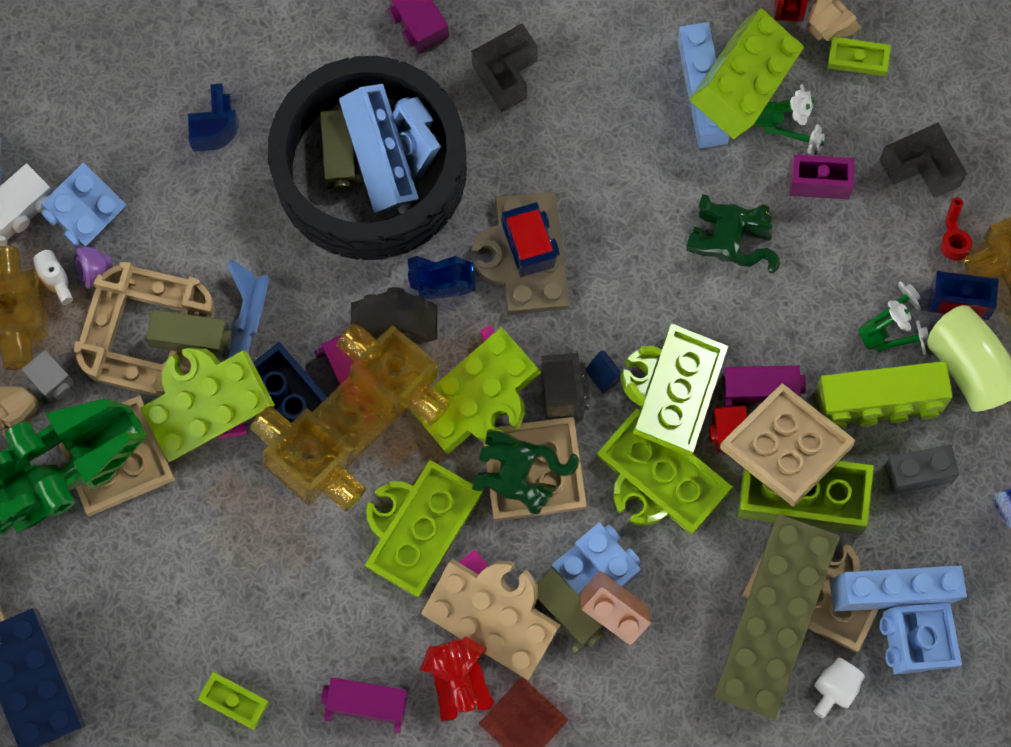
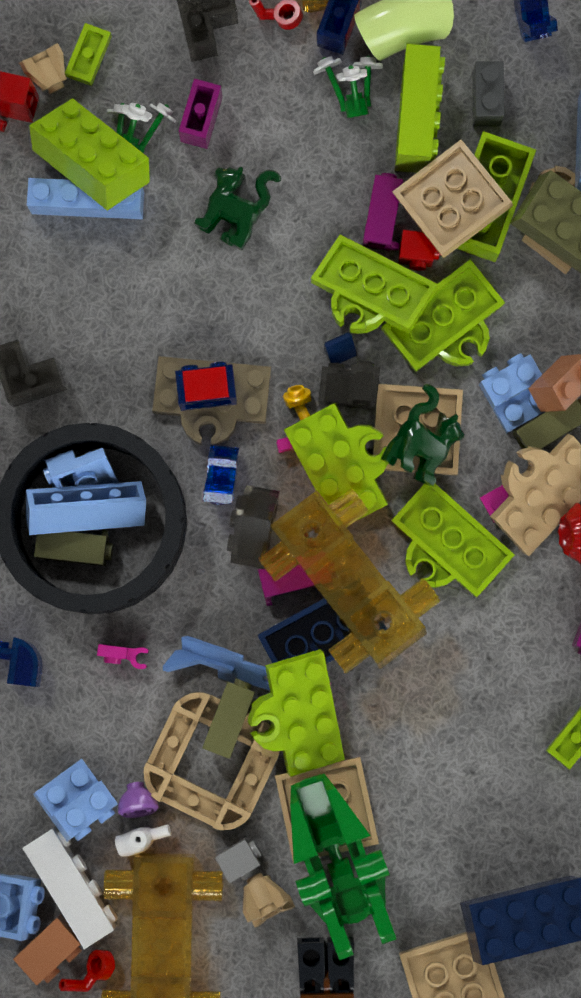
camera: 80 degrees left, 10 degrees up
(238, 214) = (114, 654): none -> dark pink plate
(541, 339) = (297, 397): none -> yellow plate

